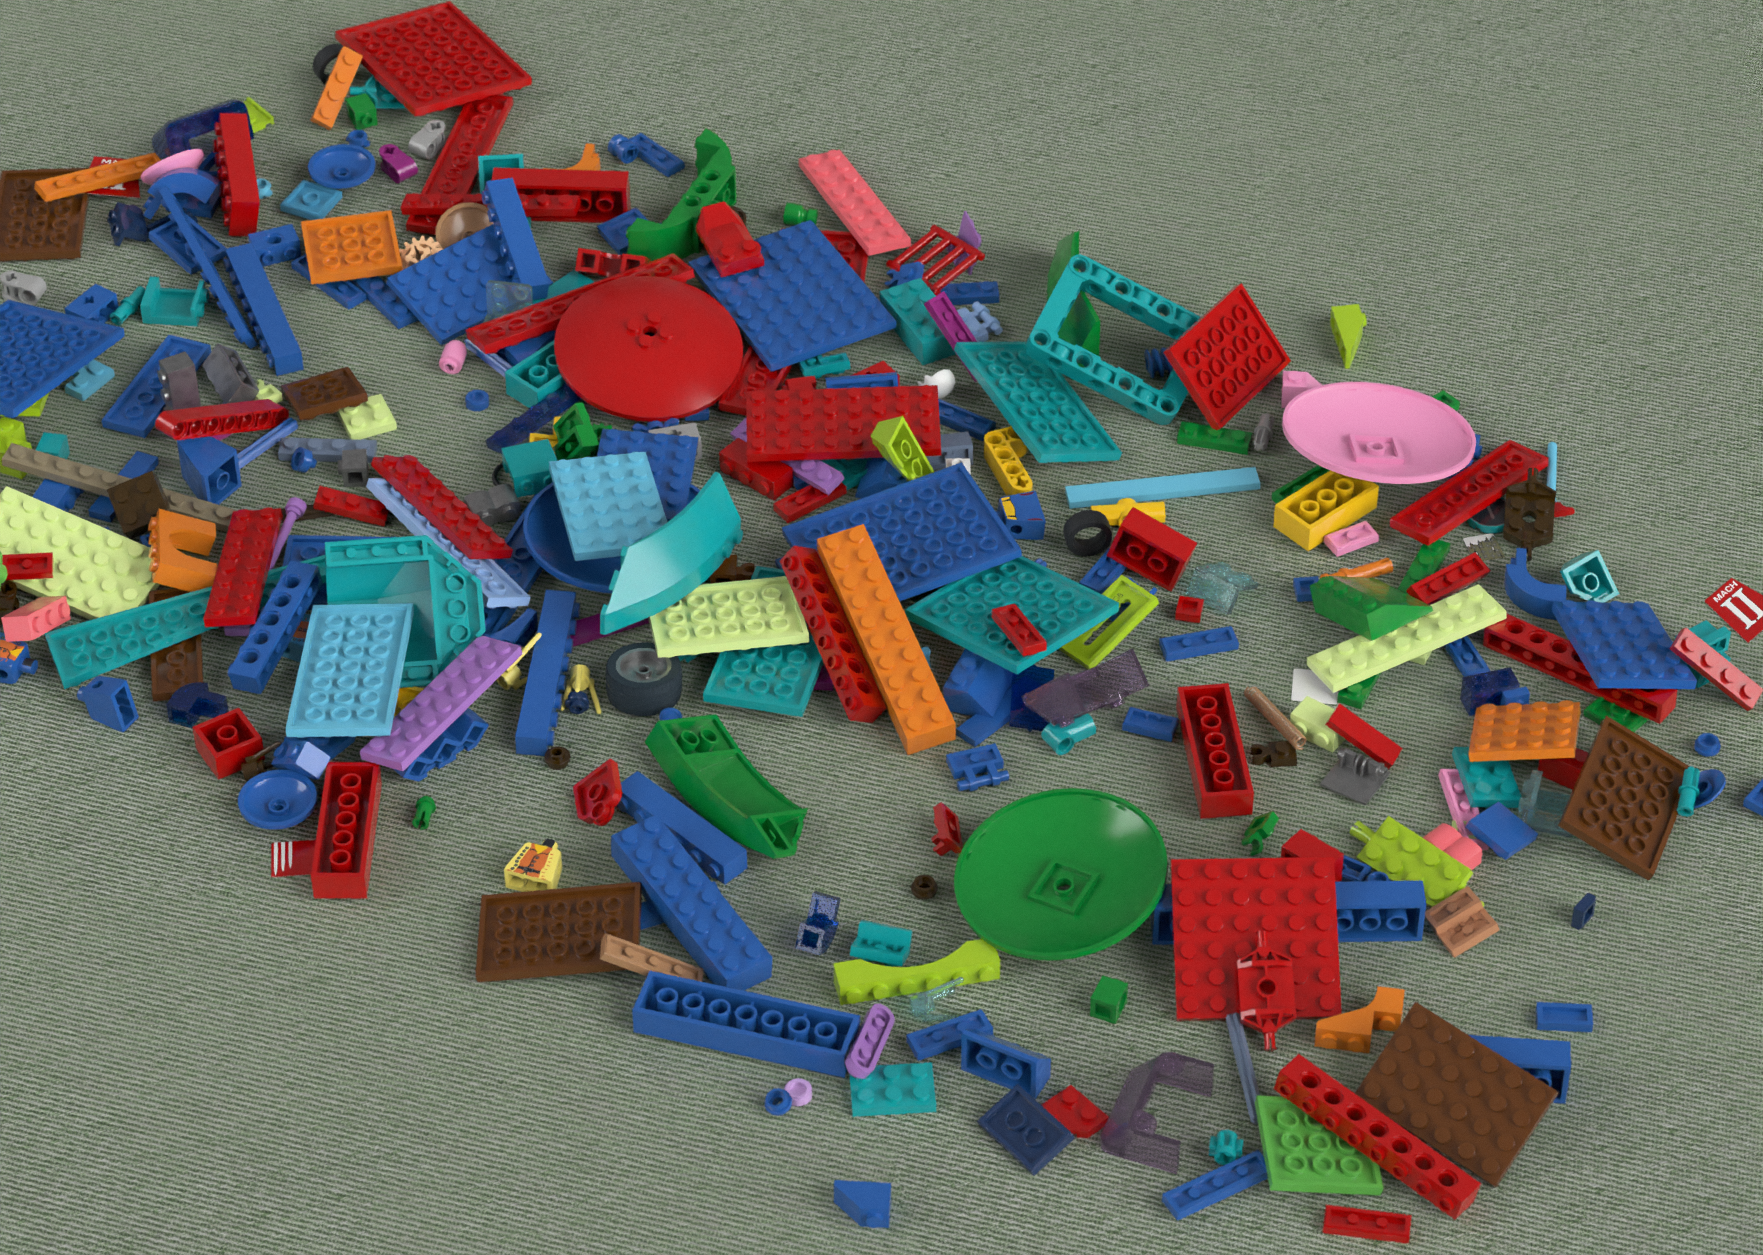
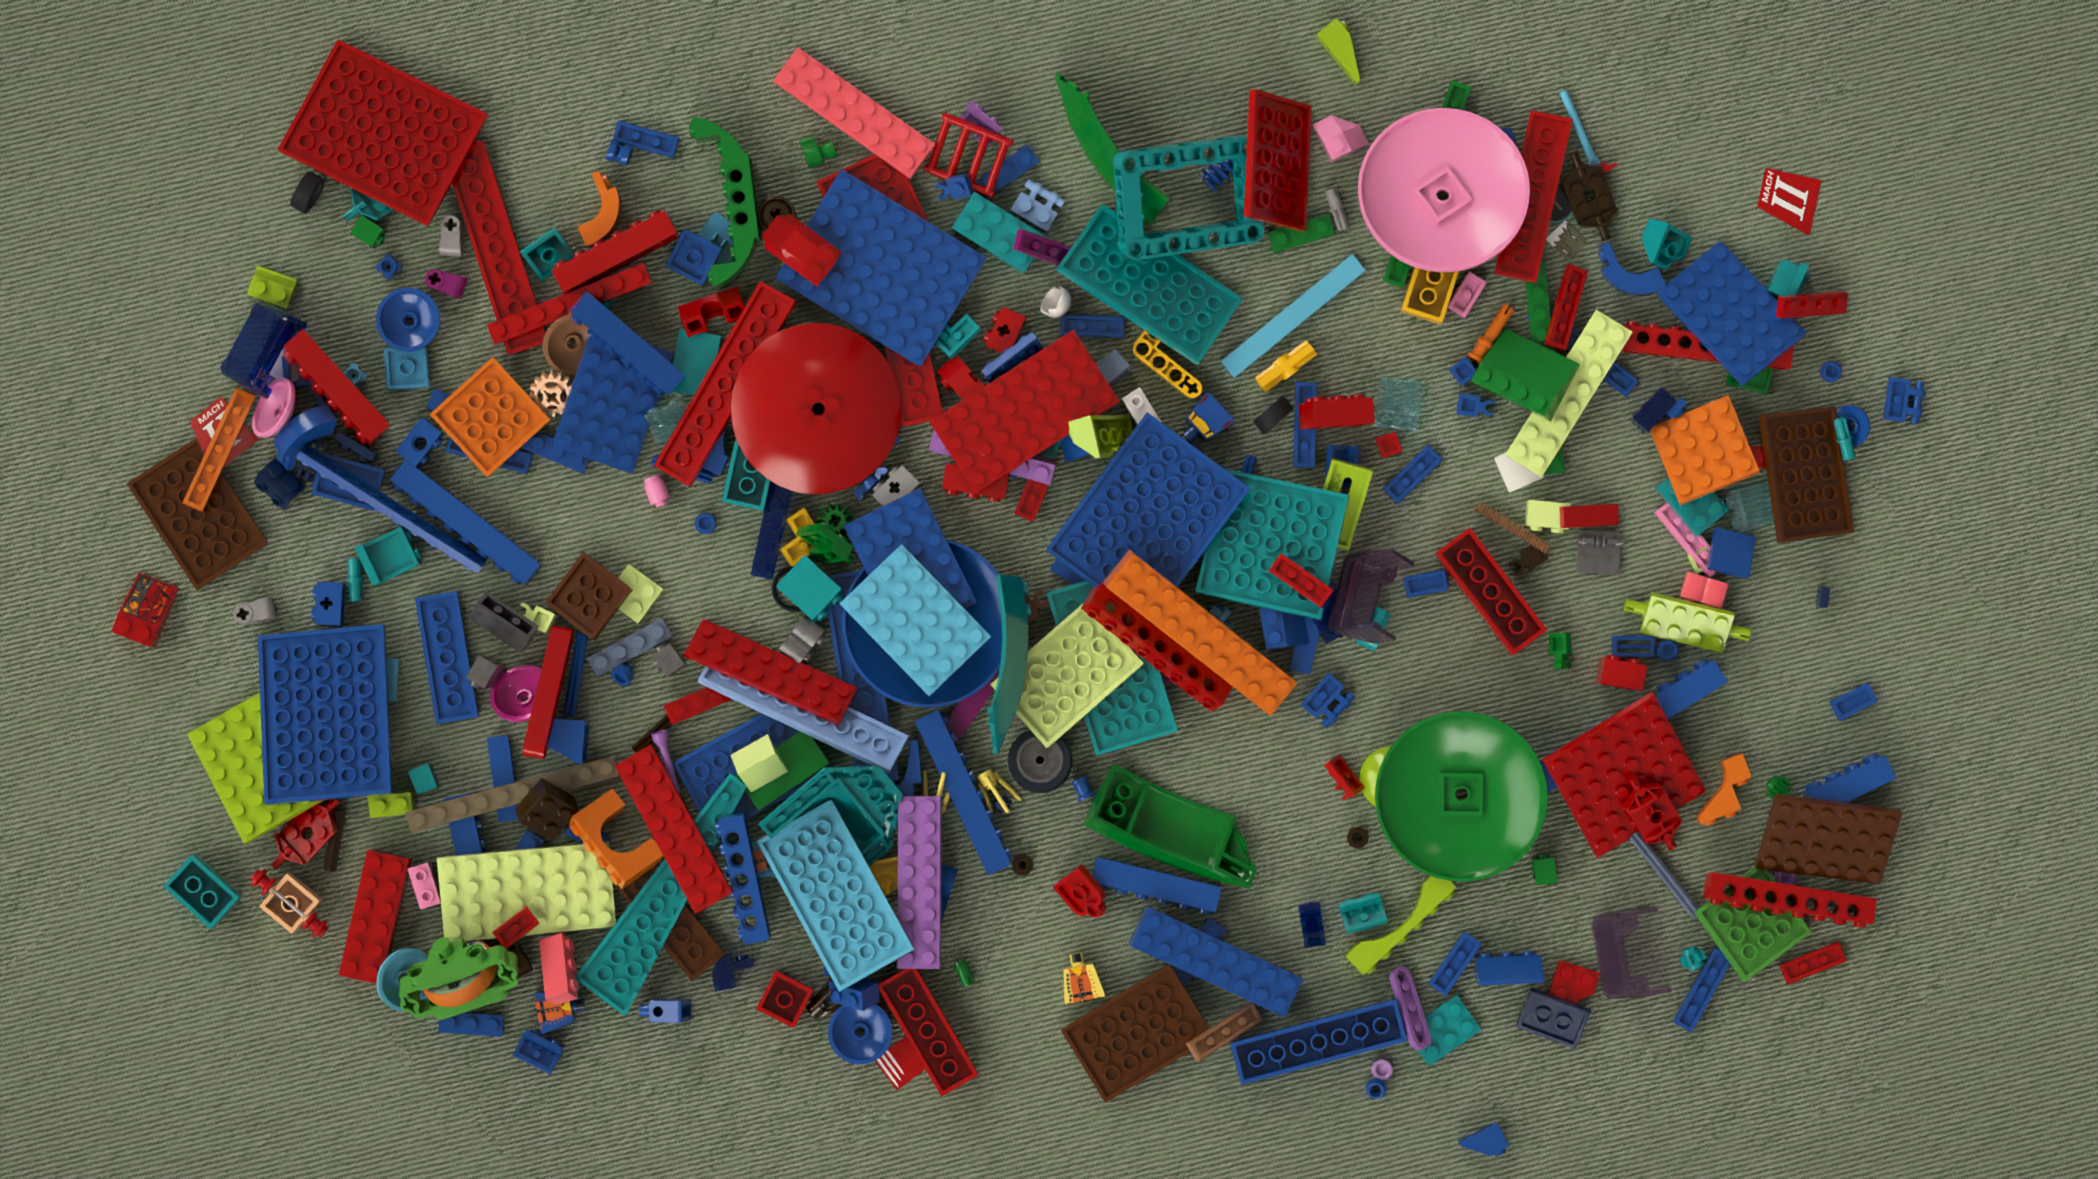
camera: 30 degrees left, 45 degrees up
(217, 226) = (363, 452): none -> dark blue plate
(336, 88) = (333, 225): orange plate -> none
(923, 1002) = (1421, 947): clear light blue plant -> none
(1299, 615) = (1470, 405): none -> blue plate
(1461, 921) = (1744, 657): nougat slope -> none

